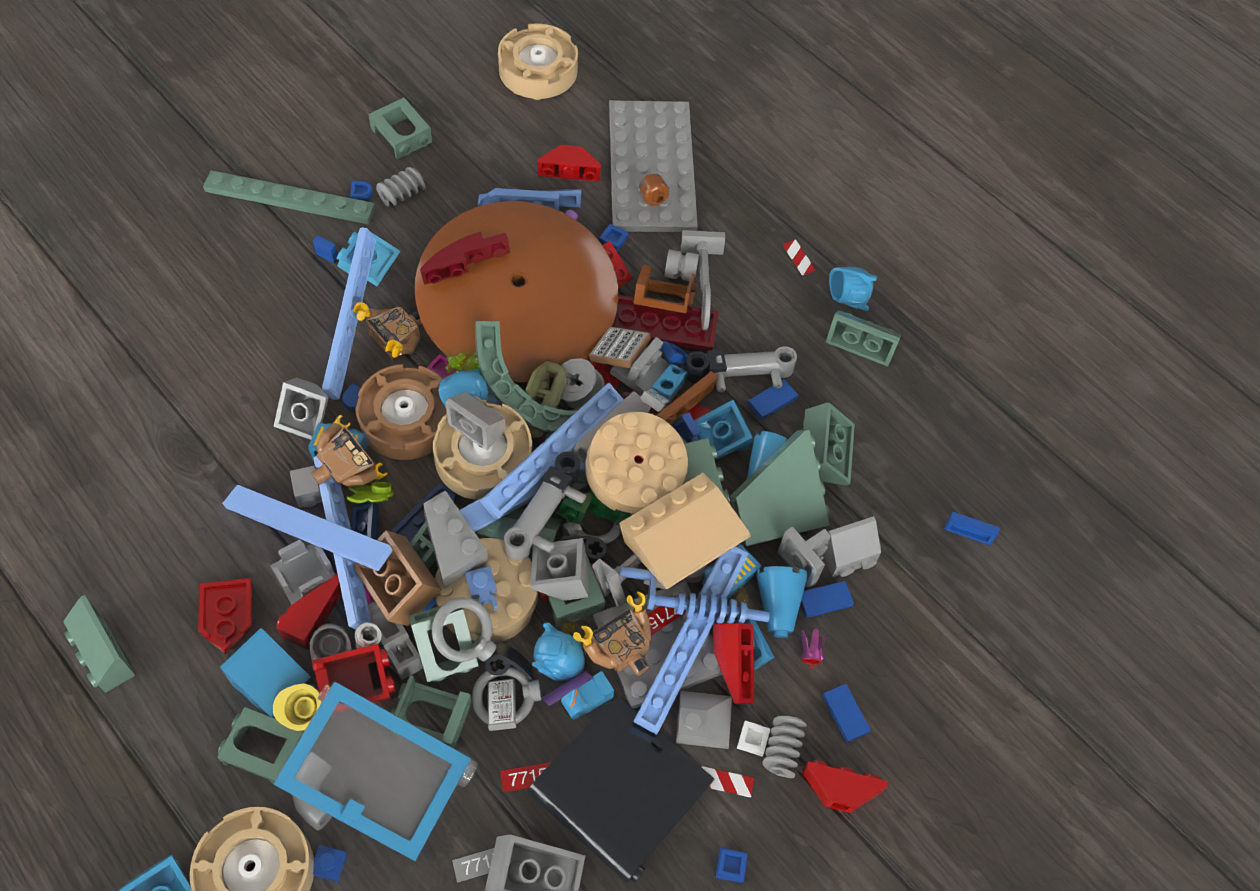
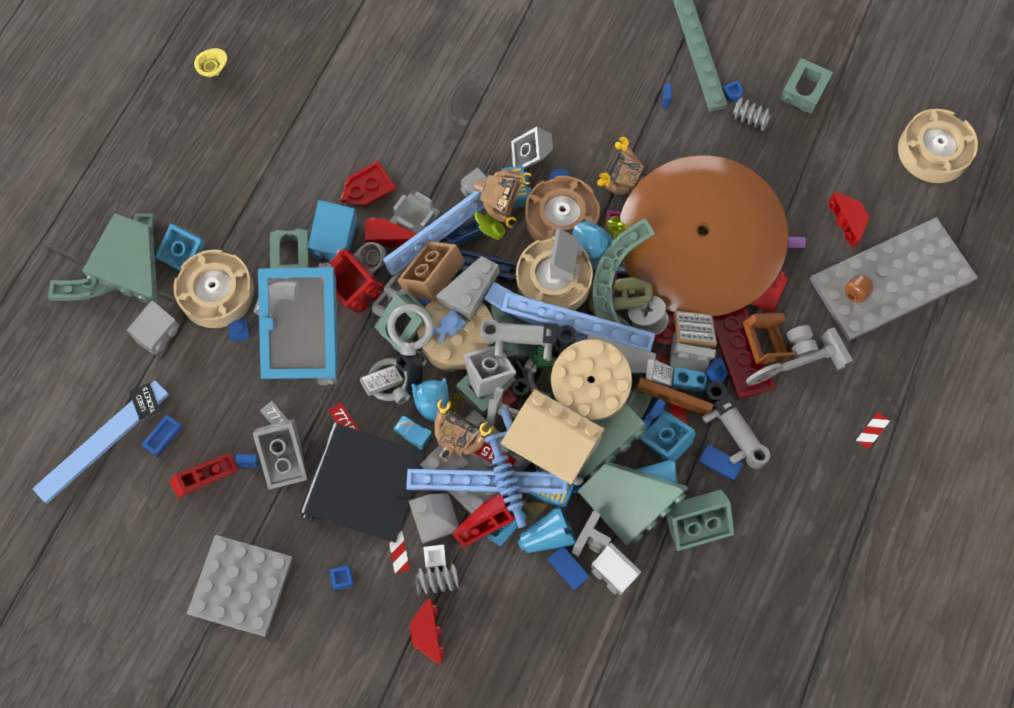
camera: 70 degrees right, 10 degrees up
(96, 646) = (309, 129): sand green slope -> none
(296, 706) = (318, 254): light yellow piece -> none
(308, 527) = (440, 200): light blue tile -> none
(347, 318) = (631, 132): light blue tile -> none
(367, 635) = (382, 269): white cone -> none
(382, 259) = (676, 124): medium azure plate -> none
(454, 258) = (690, 177): dark red slope -> none
(459, 704) = (369, 356): sand green panel -> none
(548, 198) = (801, 209): medium blue wedge -> none
(561, 691) = (404, 411): medium lavender sticker -> none
(615, 236) = (800, 281): blue plate -> none
(815, 654) = (519, 572): flat silver piece -> none
(846, 713) = (485, 616): blue tile -> none
(851, 286) = (862, 482): dark azure helmet -> none
(863, 337) = (818, 509): sand green slope -> none
(971, 528) = (685, 659): blue tile -> none

